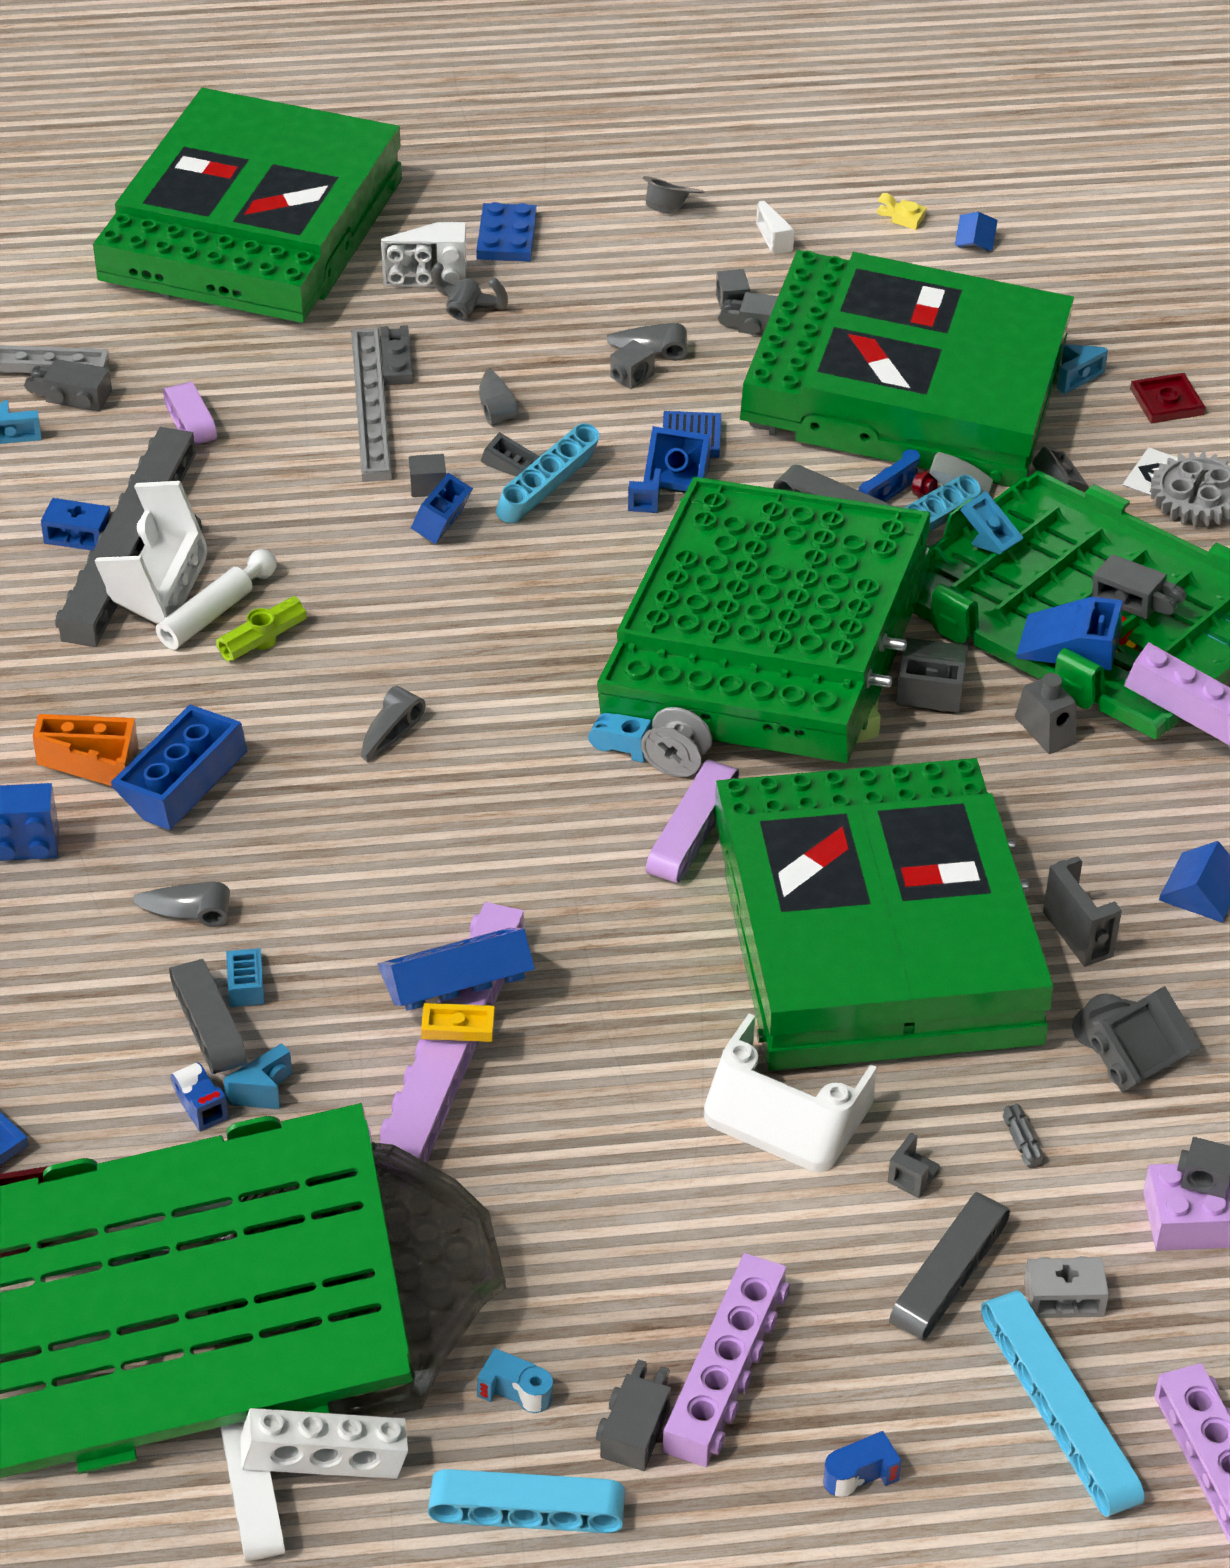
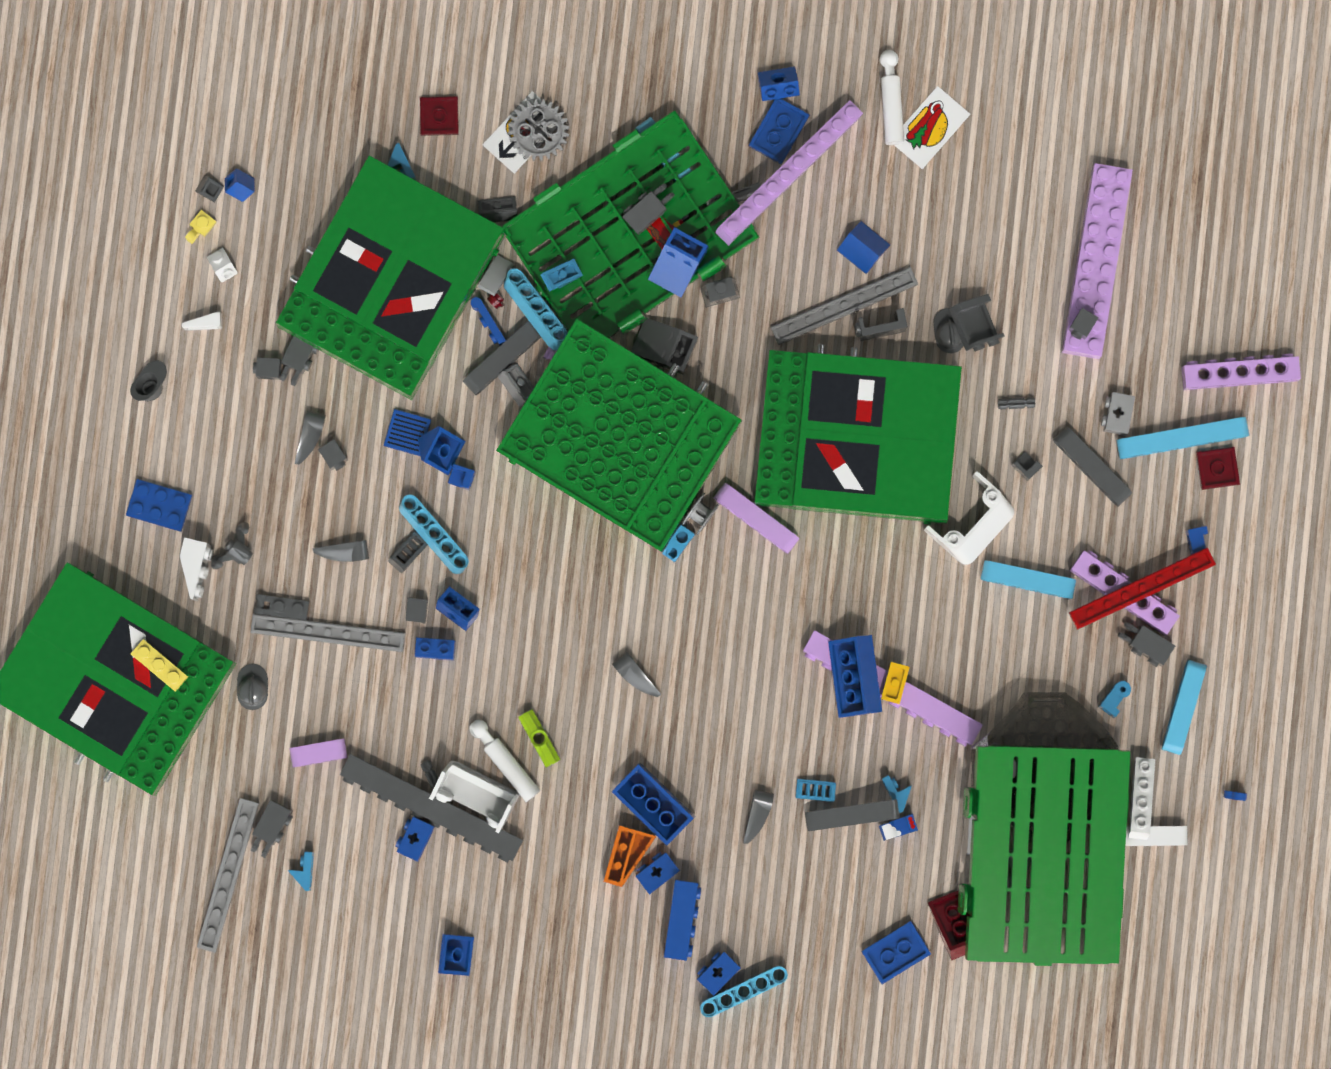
camera: 75 degrees left, 40 degrees up
(75, 797) = (668, 868): none -> blue brick
(272, 344) = (252, 687): none -> dark grey piece
(277, 213) = (159, 665): none -> light yellow plate
(374, 499) = (435, 649): none -> blue brick
(705, 1206) = (1028, 579): none -> medium azure beam
(744, 1371) = (1142, 588): none -> red tile
(856, 232) = (222, 265): none -> white bracket
(956, 208) = (209, 188): none -> dark grey slope
(1024, 1478) = (1217, 468): none -> dark red tile
(1097, 880) = (844, 306): none -> light grey tile

